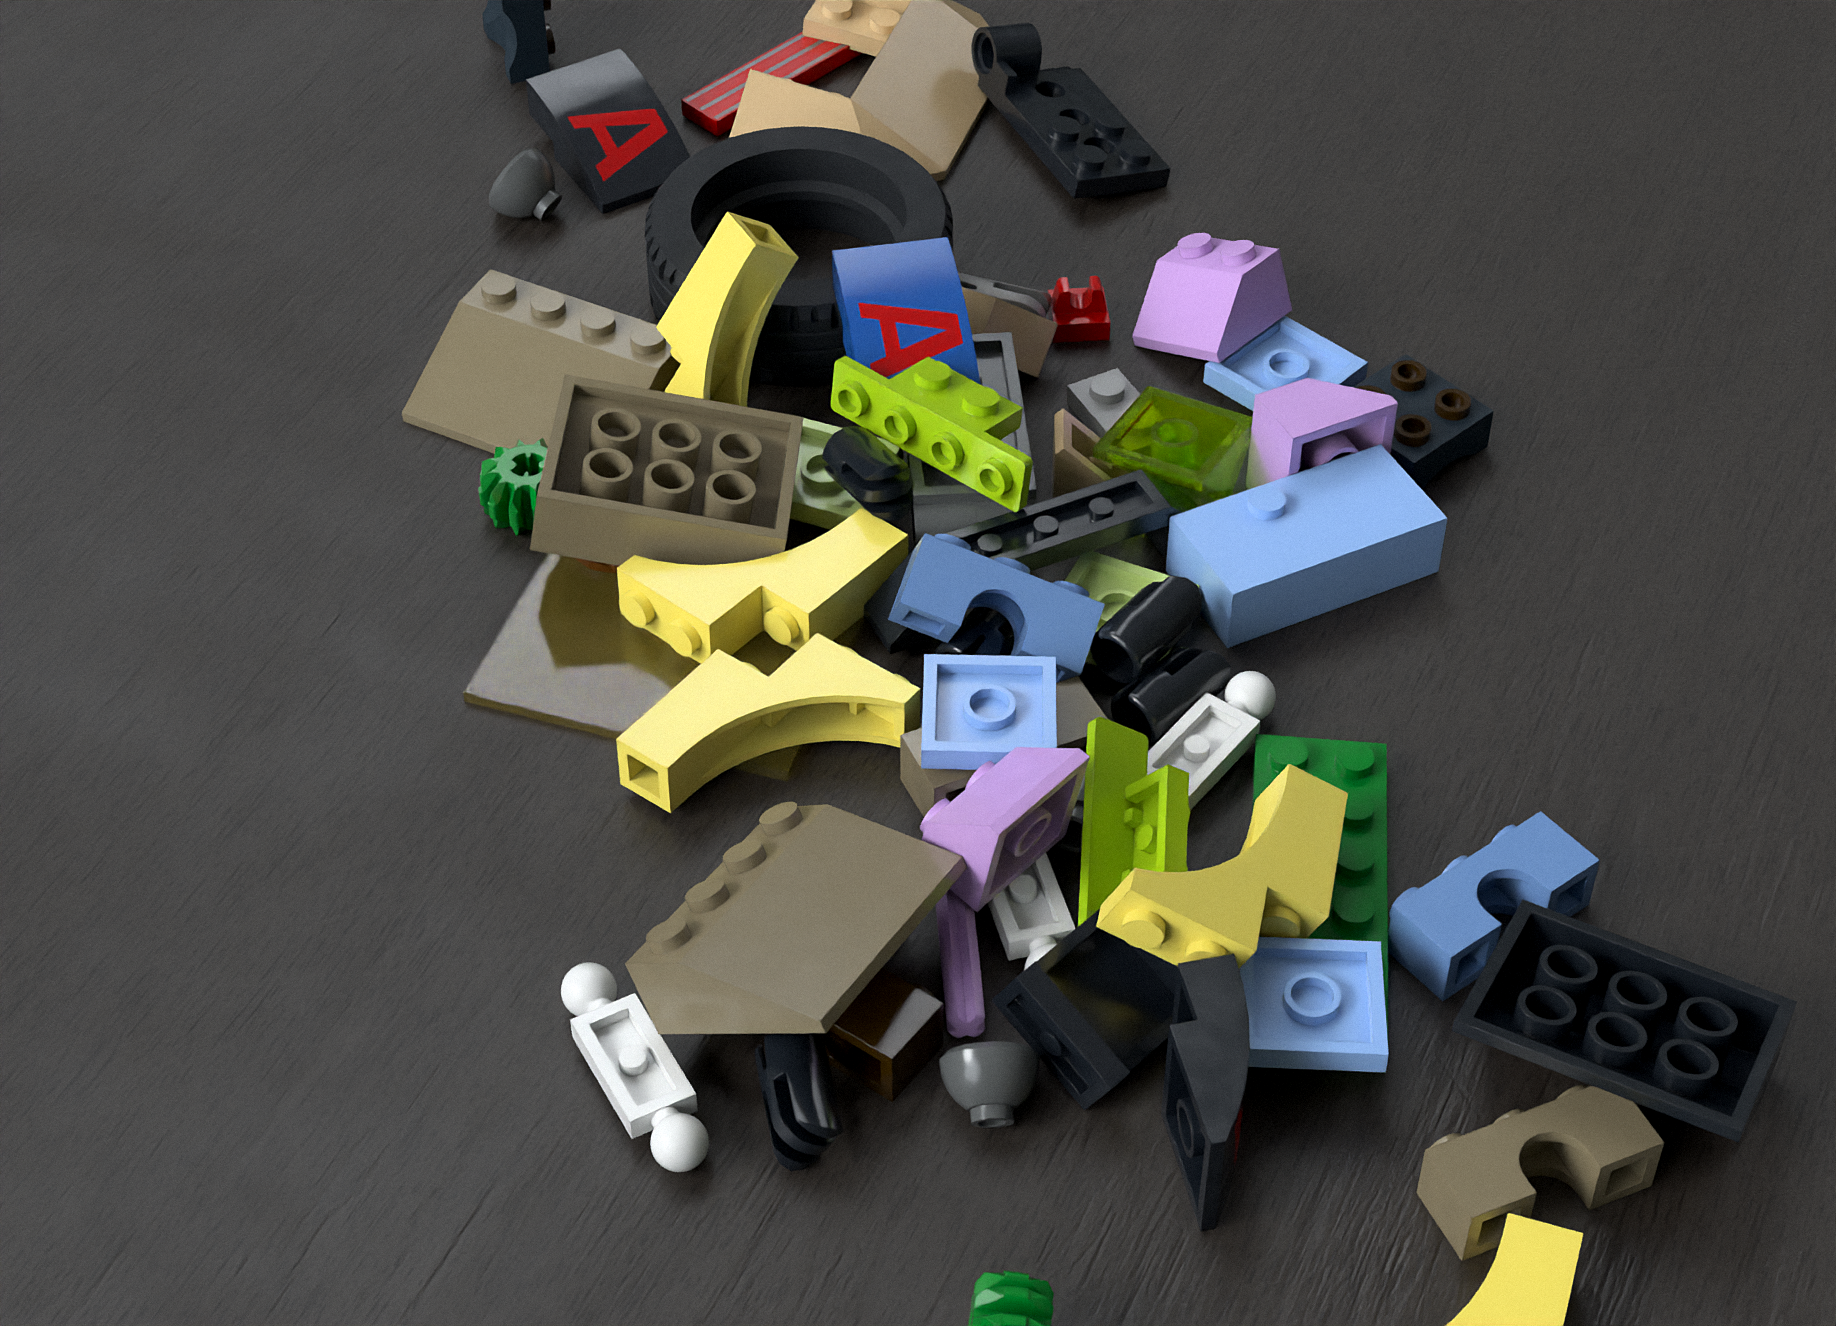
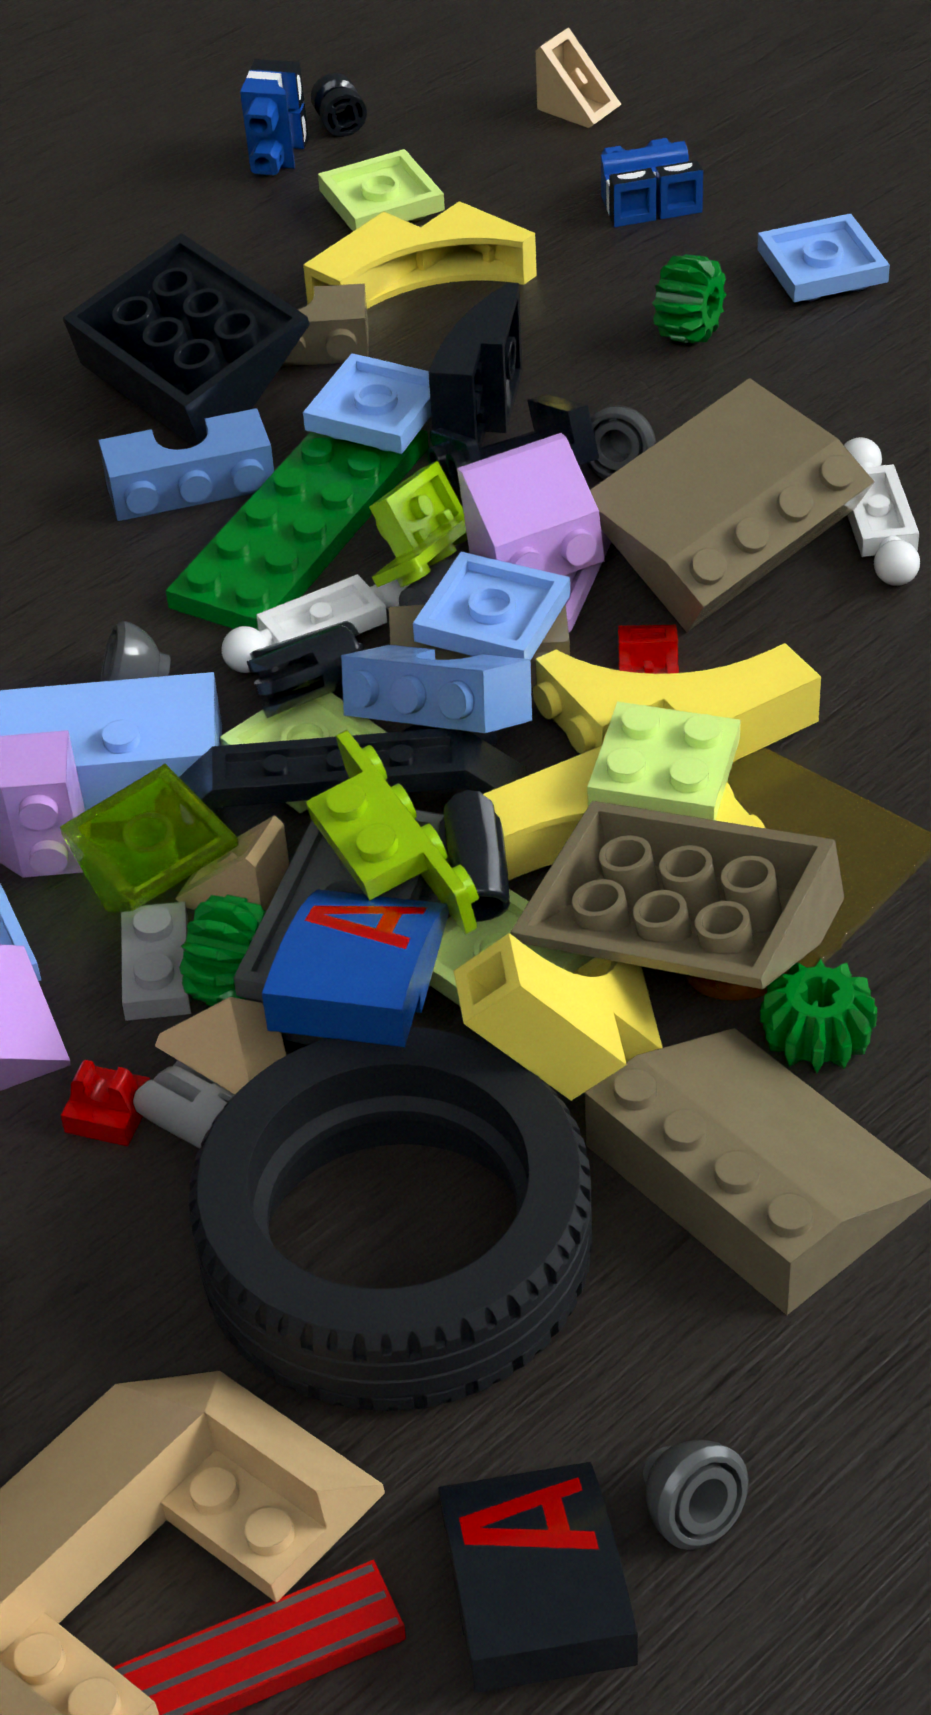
camera: 155 degrees left, 0 degrees up
(735, 594) = (665, 760): none -> yellowish green plate
(815, 774) = (648, 648): none -> red slope
(1047, 385) = (217, 946): none -> green gear
(1269, 890) = (367, 444): light yellow arch -> none
(1348, 644) = (132, 655): none -> dark grey brick

